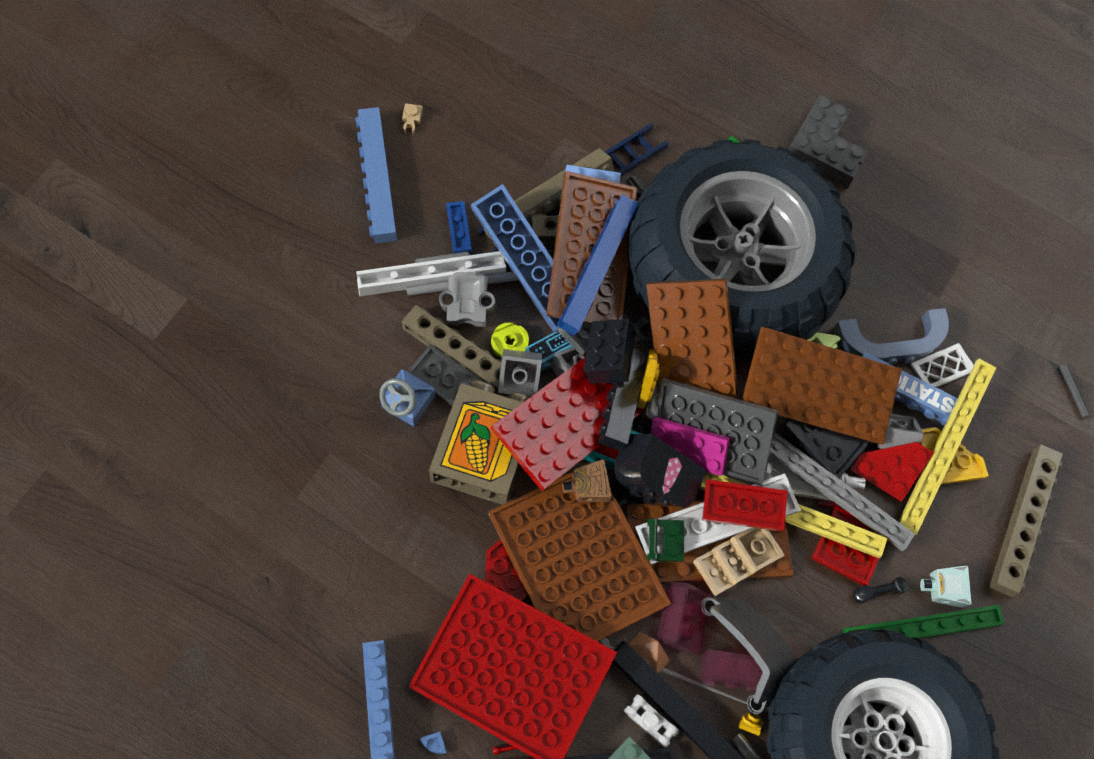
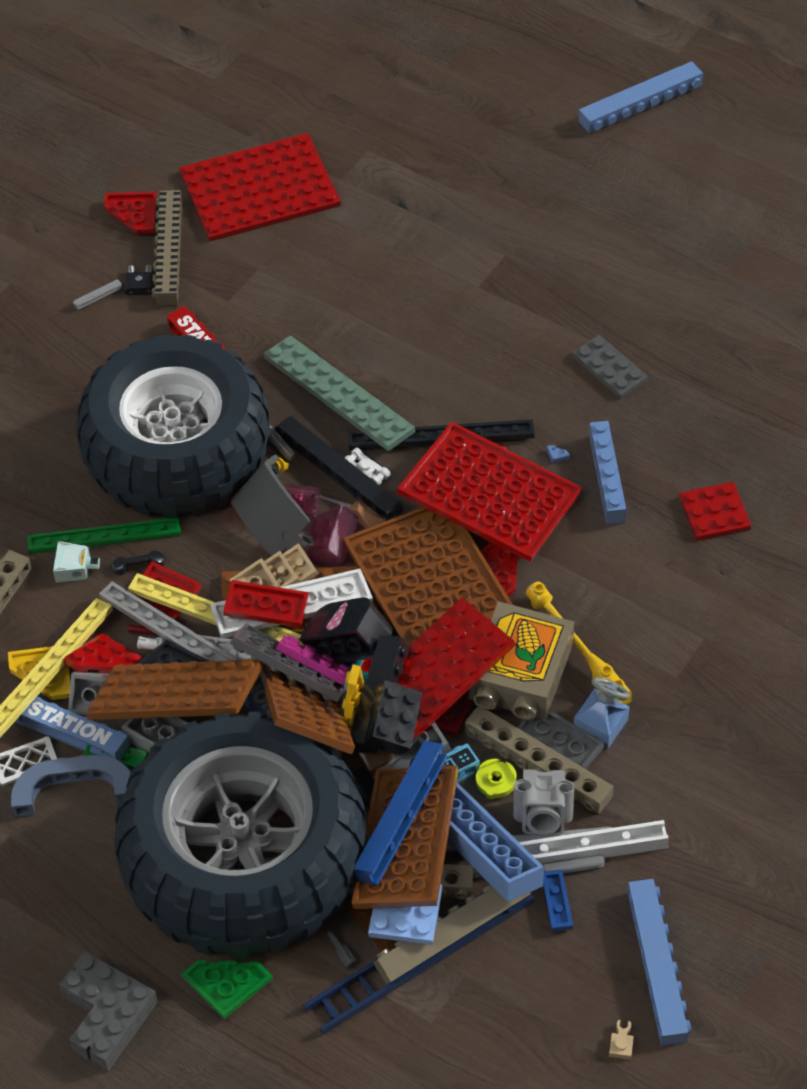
camera: 170 degrees left, 15 degrees down
(263, 659) = (714, 511): none -> red plate
(404, 448) = (541, 599): none -> yellow bar
(519, 372) = (485, 729): light grey slope -> none
(589, 483) = (413, 622): medium nougat torso -> none
(672, 540) = (338, 581): dark green plate -> none

